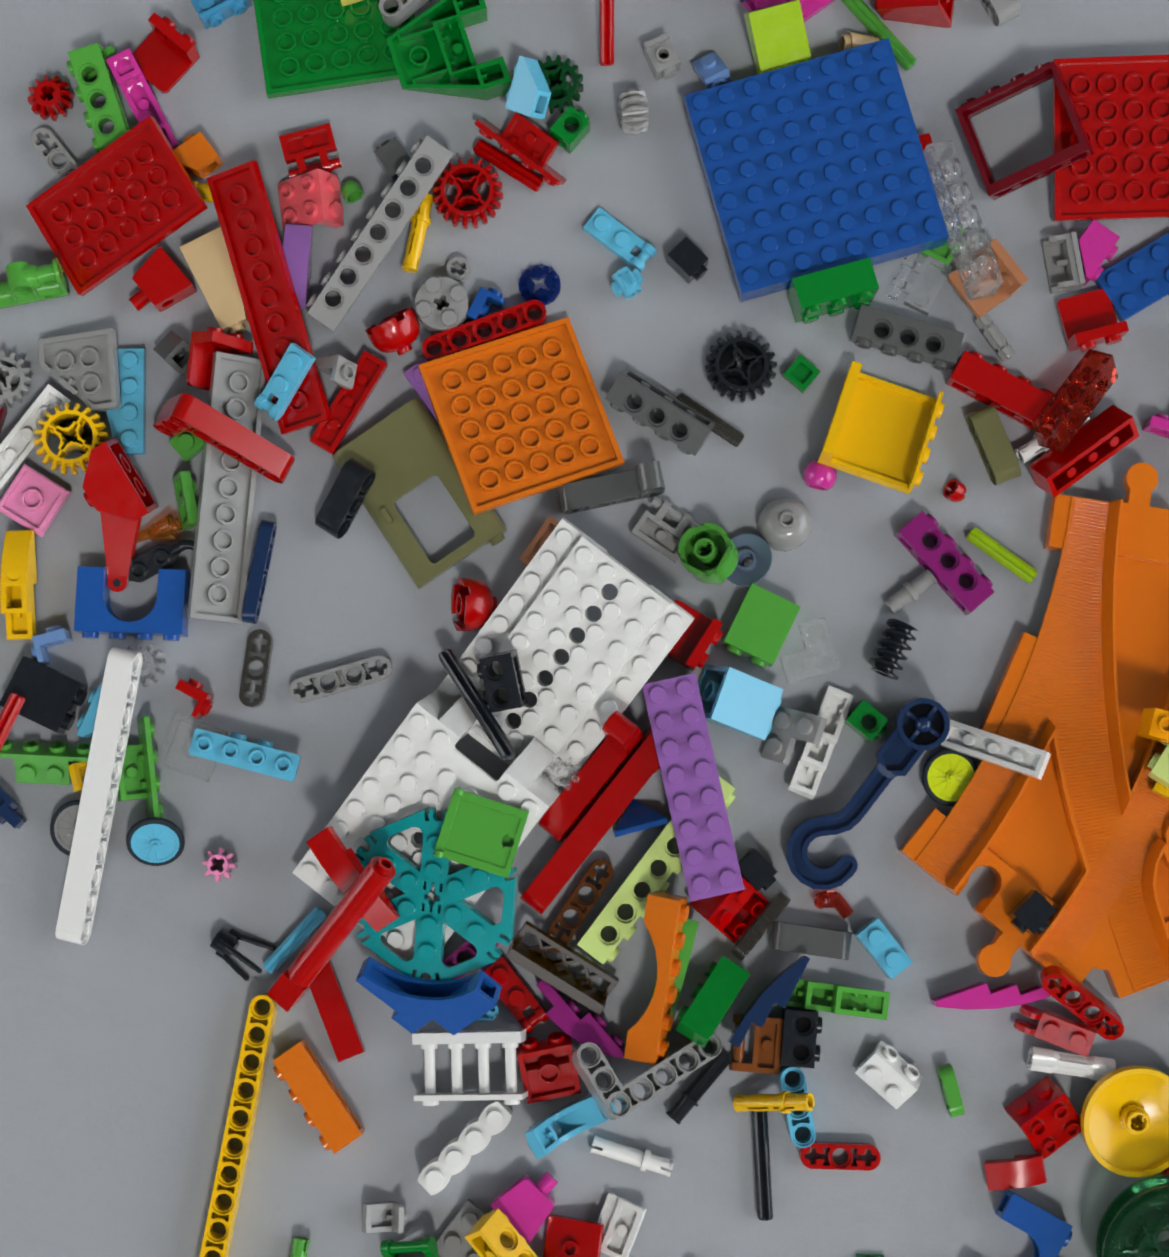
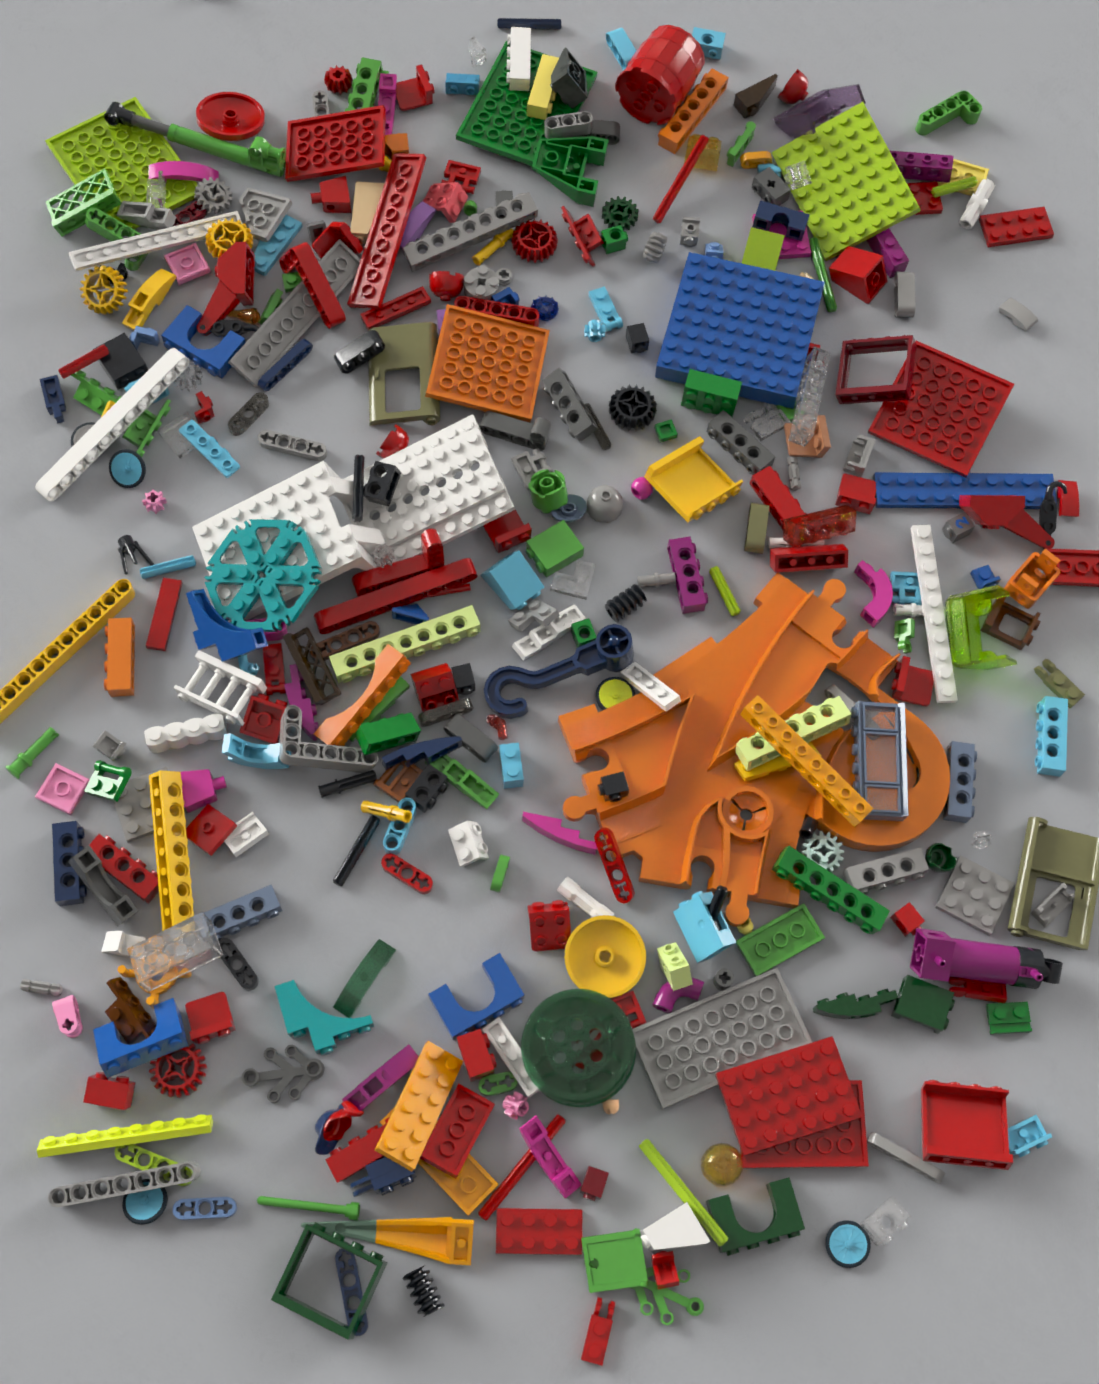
camera: 25 degrees right, 15 degrees down
(285, 381) = (366, 274): medium azure plate -> none
(332, 933) = (152, 584): red brick -> none
(340, 369) = (401, 285): light grey bracket -> none
(344, 869) = (223, 542): red slope -> none
(477, 830) = (309, 545): bright green container -> none
(508, 165) = (567, 240): red axle -> none
(529, 89) = (602, 204): medium azure slope -> none
(632, 1156) = (286, 804): white pin -> none
(693, 787) = (454, 605): medium lavender plate -> none
(954, 490) = (718, 541): red hinge -> none
(1016, 1172) = (509, 945): red slope -> none
(1057, 1030) = (590, 876): red hinge -> none
(1095, 246) = (882, 457): dark pink slope -> none

